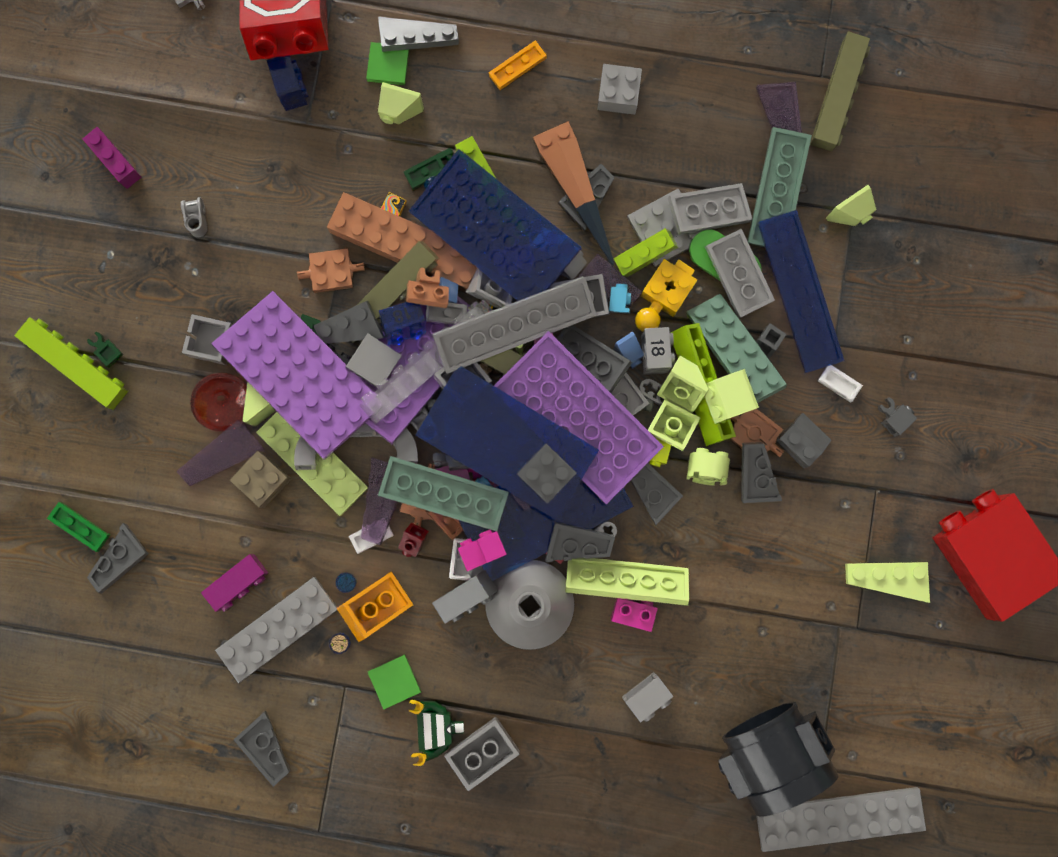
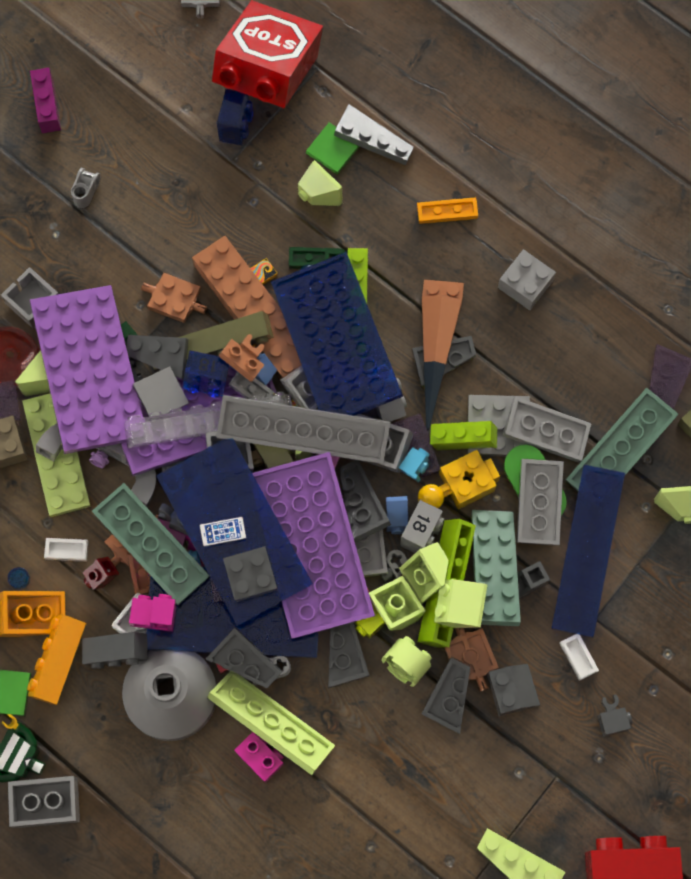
camera: 30 degrees right, 10 degrees down
(352, 444) = (99, 459): none -> lavender plate
(378, 509) = (86, 529): wing -> none
(420, 632) = (56, 659): none -> light orange brick
(501, 450) = (223, 531): none -> tile
(648, 697) = (224, 839): light grey piece -> none

